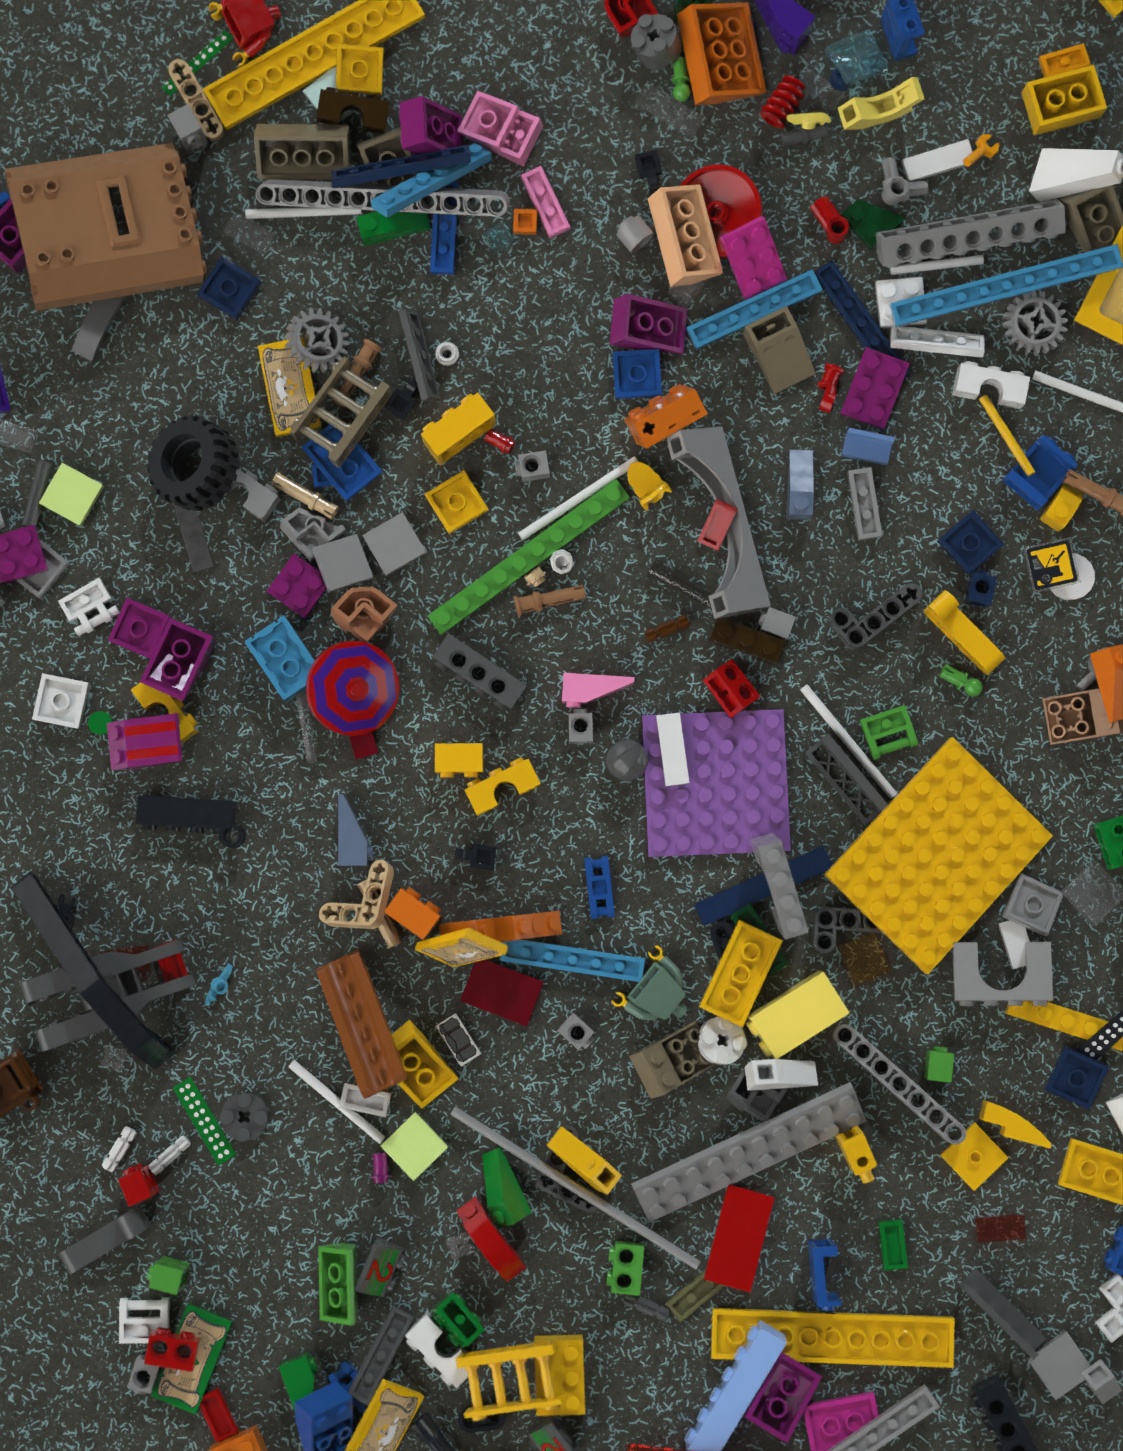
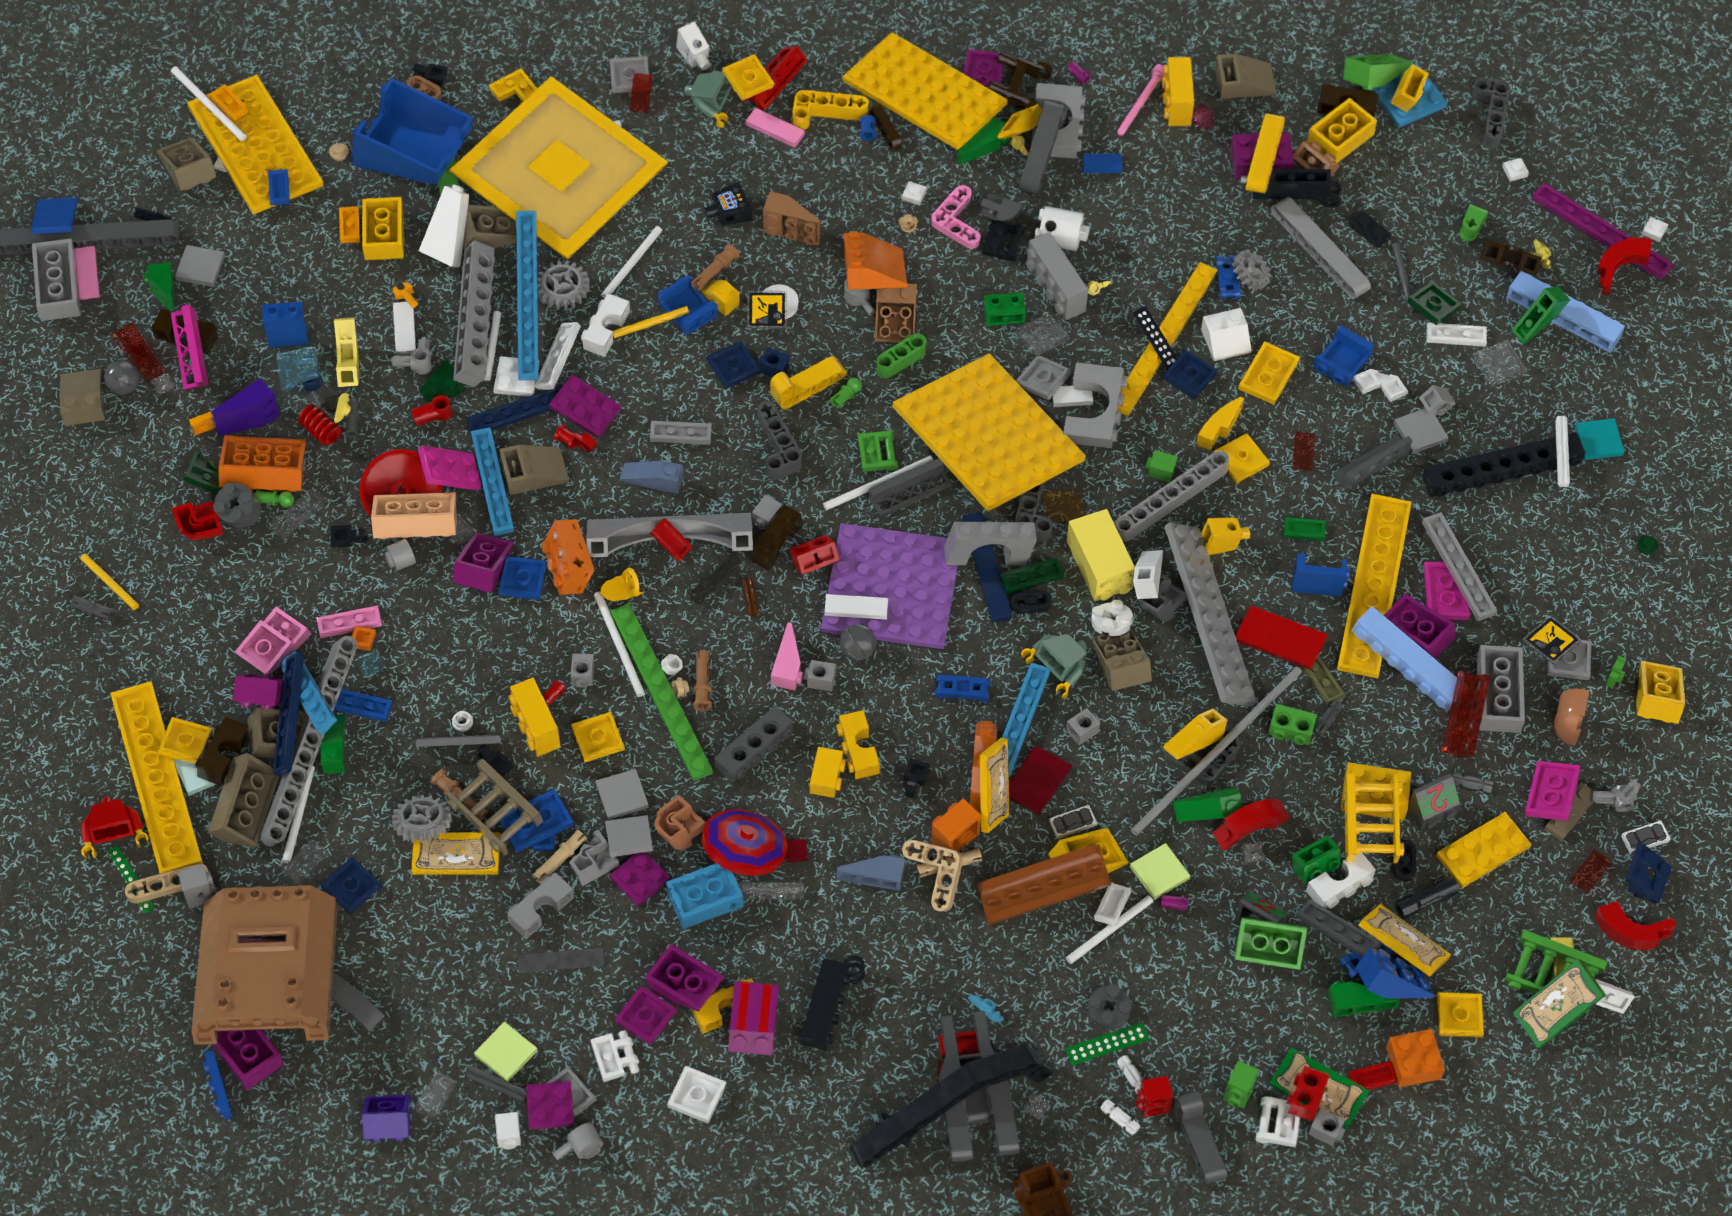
camera: 80 degrees left, 25 degrees down
(98, 722) = (724, 1066): green tile -> none
(172, 452) = (481, 925): black tyre -> none
(740, 973) = (1058, 590): yellow tile -> none
(867, 446) = (632, 421): medium blue panel -> none
(1035, 738) = (905, 348): none -> bright green beam

